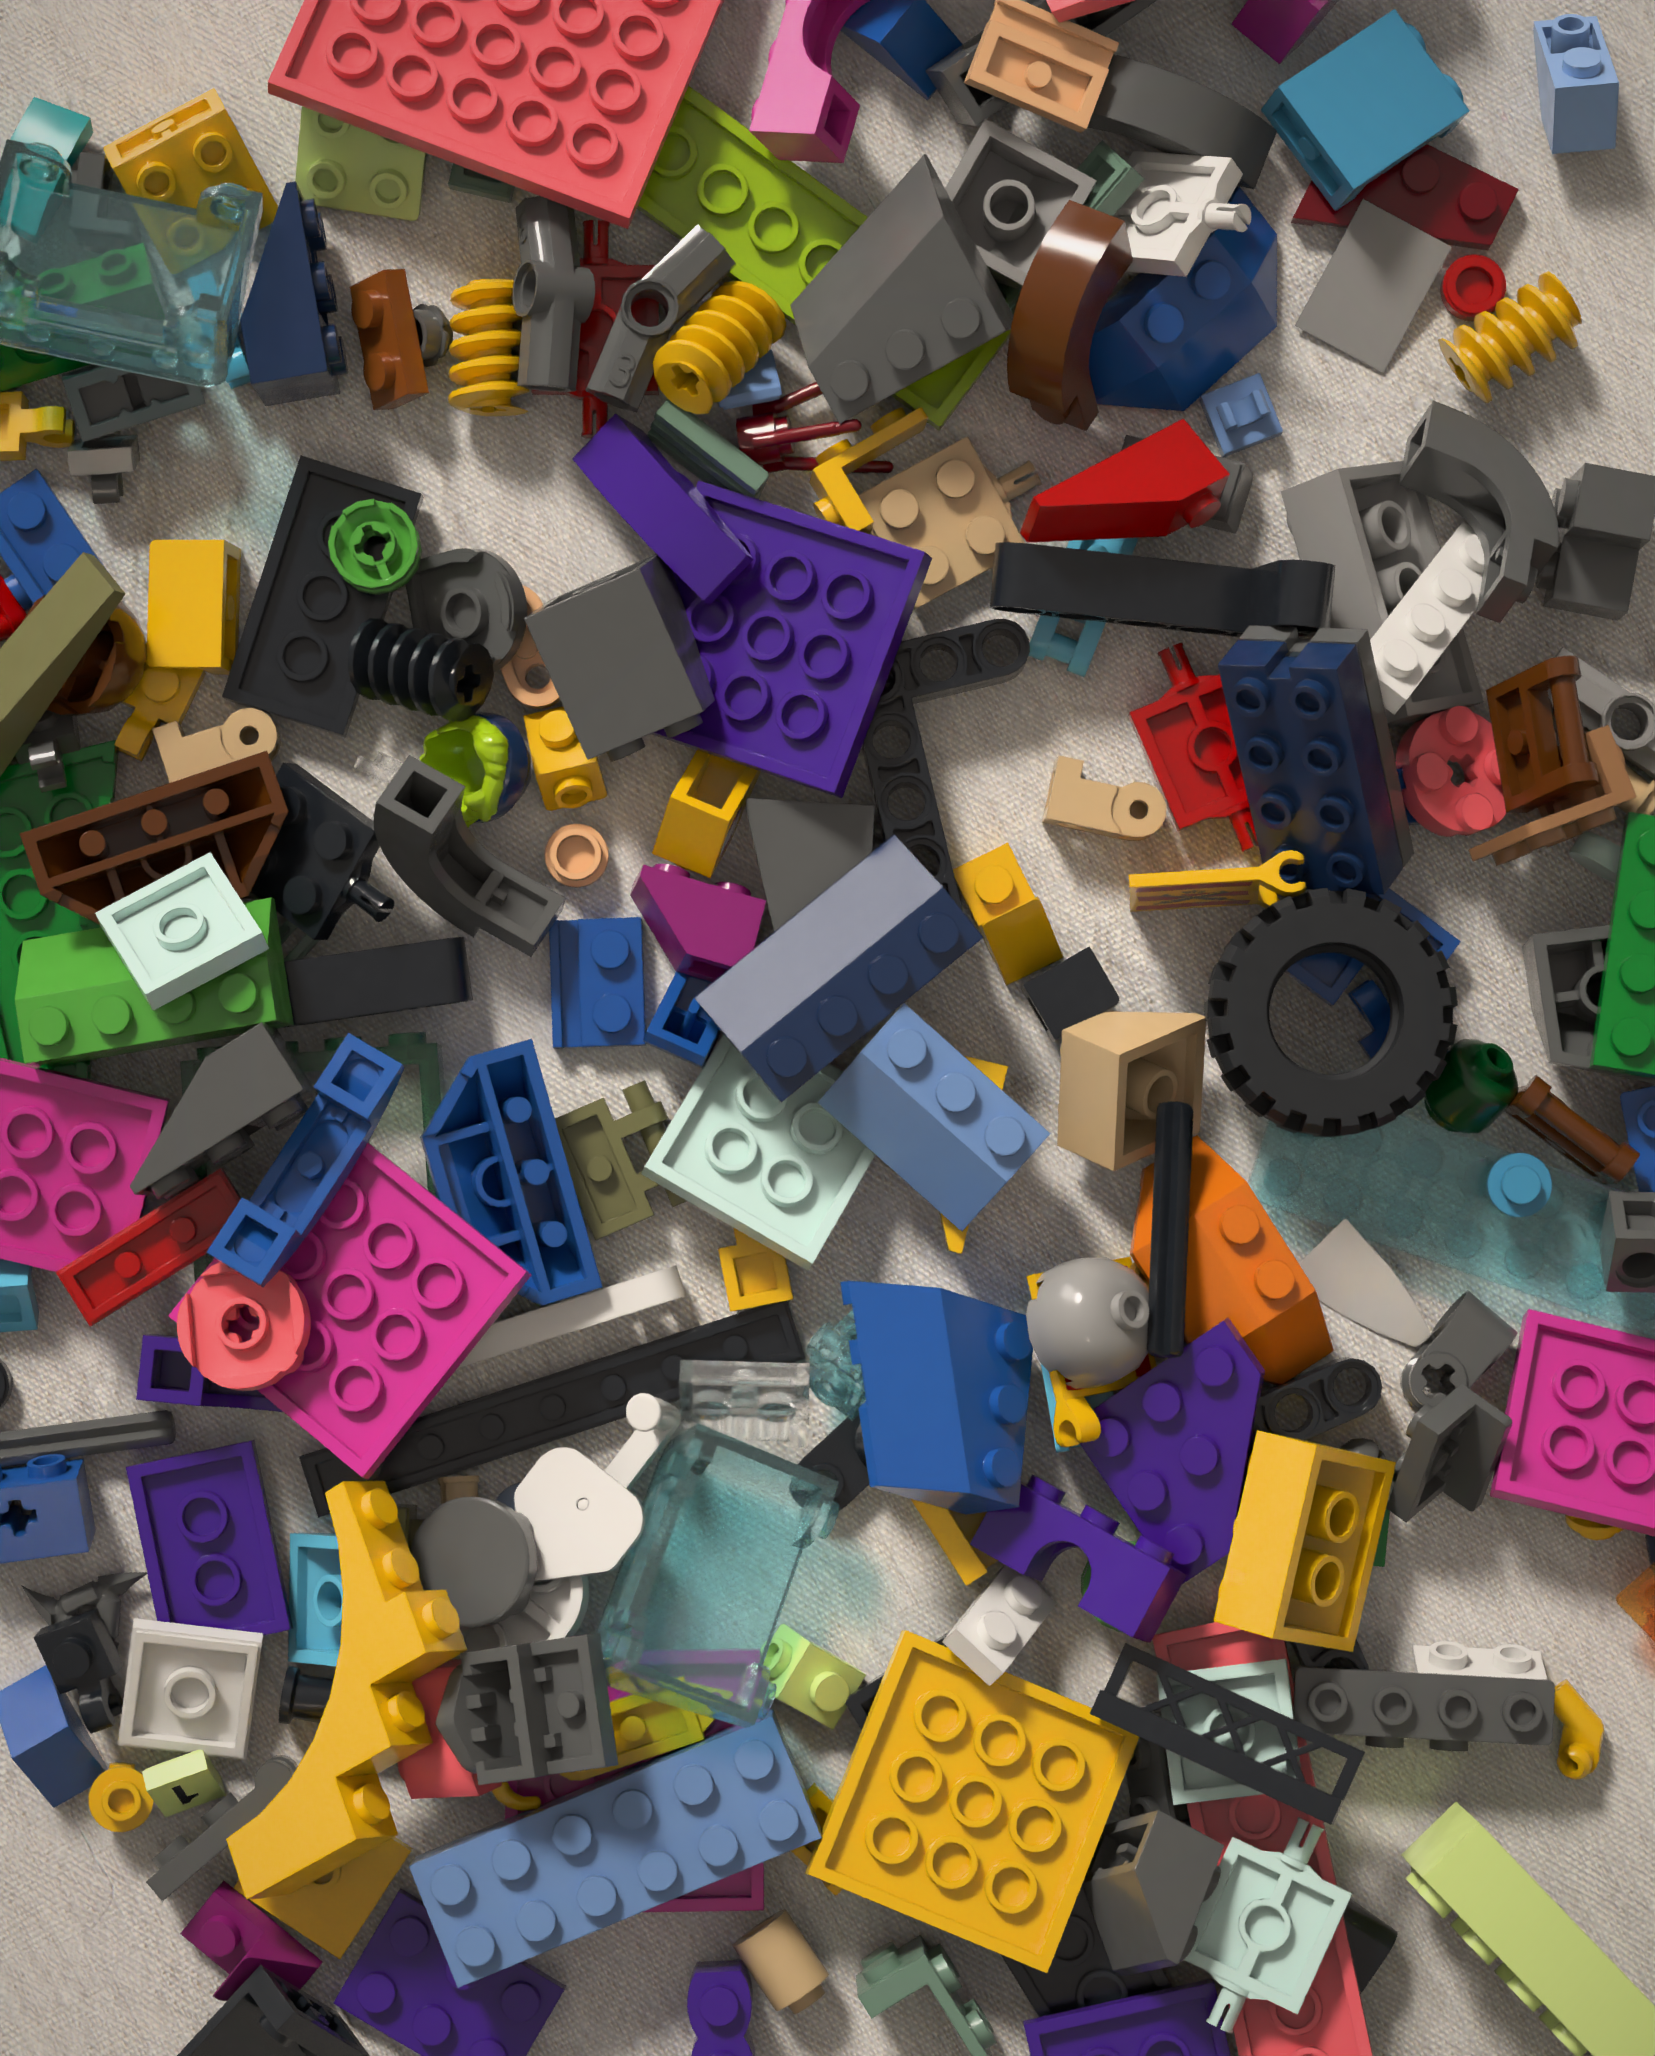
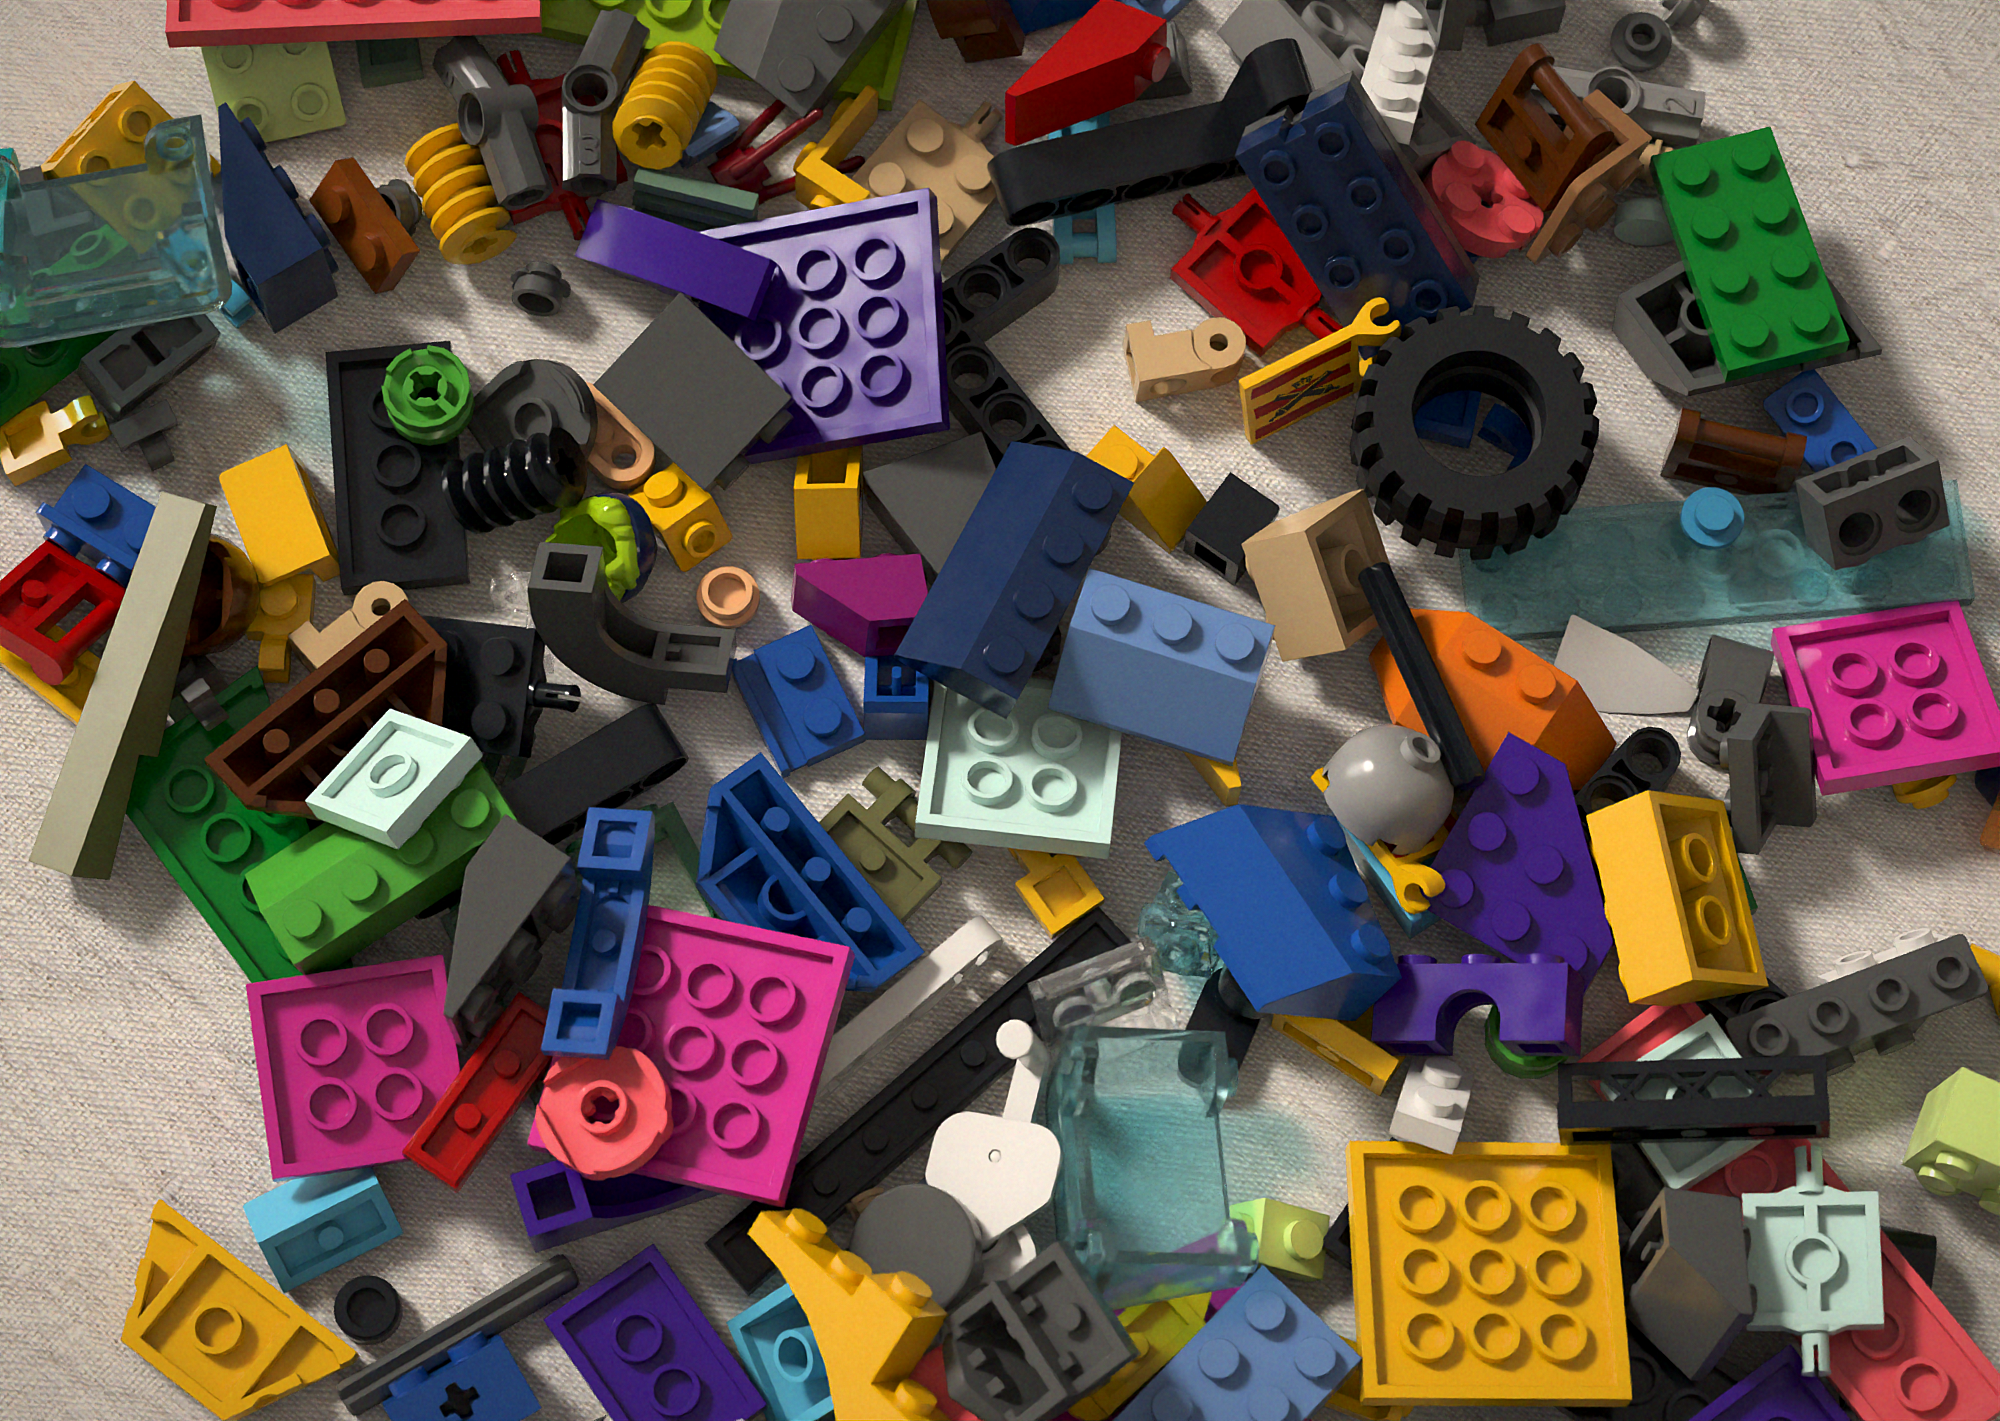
camera: 25 degrees left, 15 degrees down
(528, 472) = (539, 289): none -> dark grey plate
(1472, 1087) = (1628, 456): dark green head -> none

